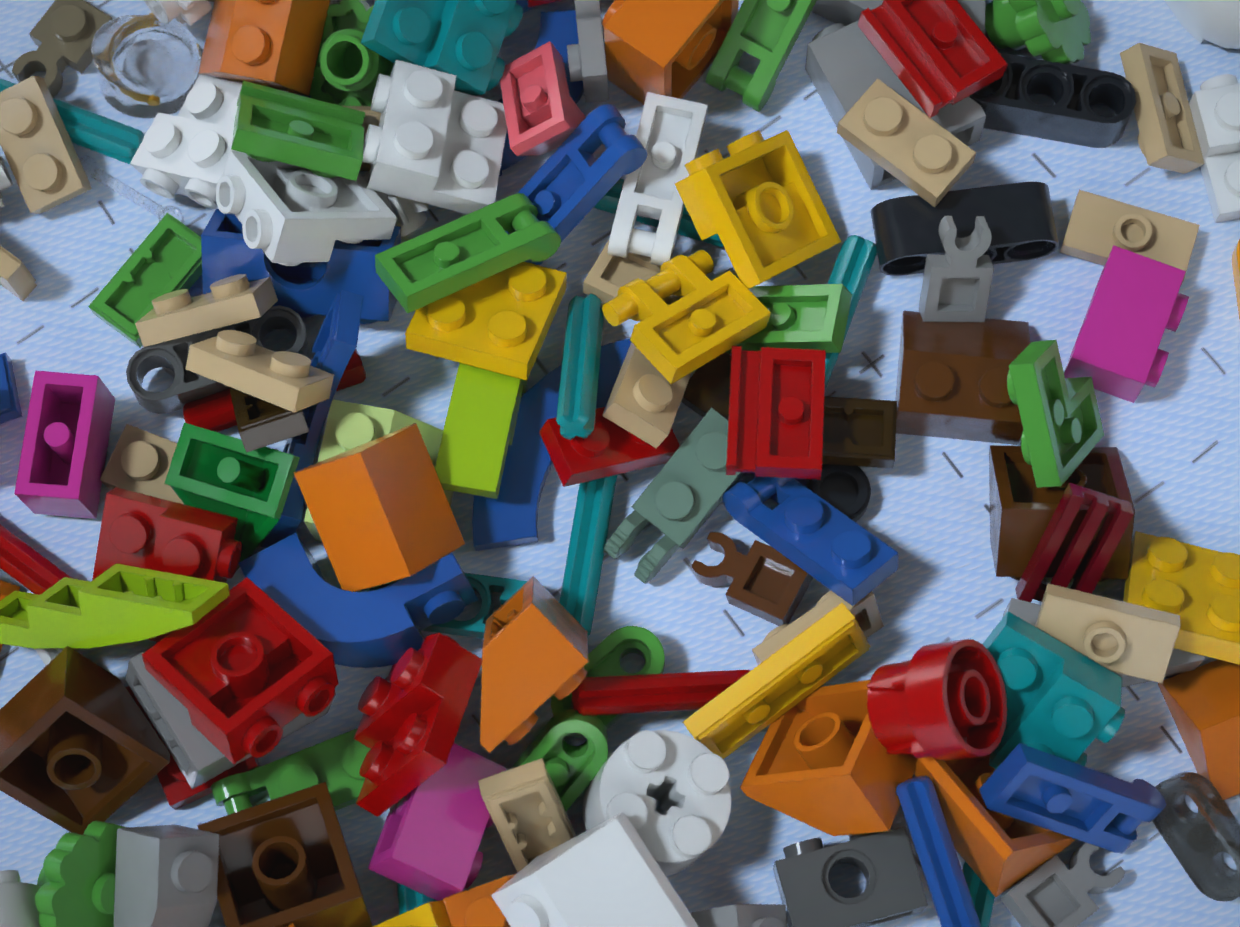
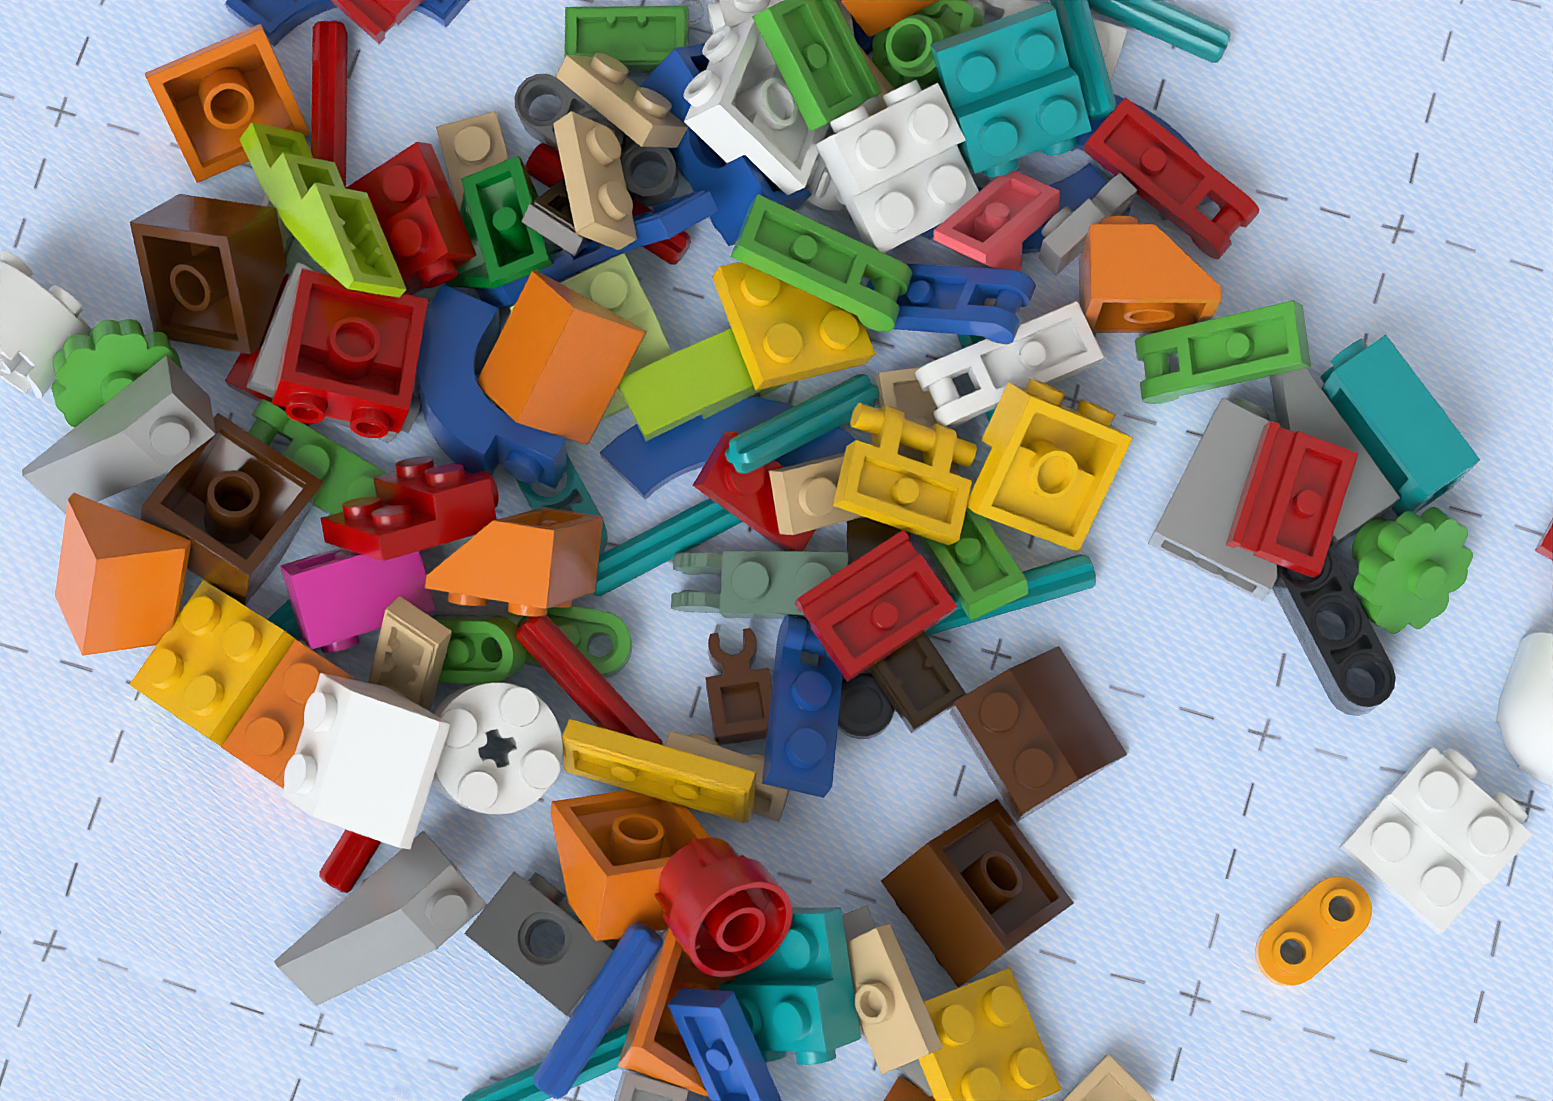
camera: 50 degrees right, 5 degrees up
(65, 444) = (438, 79): dark pink brick -> none
(906, 142) = (1192, 541): tan plate -> none
(960, 281) = (1113, 667): light grey plate -> none
(1015, 213) = (1166, 644): black beam -> none
(1056, 414) = (1039, 829): bright green plate -> none
(1104, 222) = (1265, 785): tan plate -> none
(1113, 529) = (969, 946): dark red tile -> none
(1126, 323) = (1182, 835): dark pink brick -> none
(1162, 109) = (1401, 730): tan plate -> none

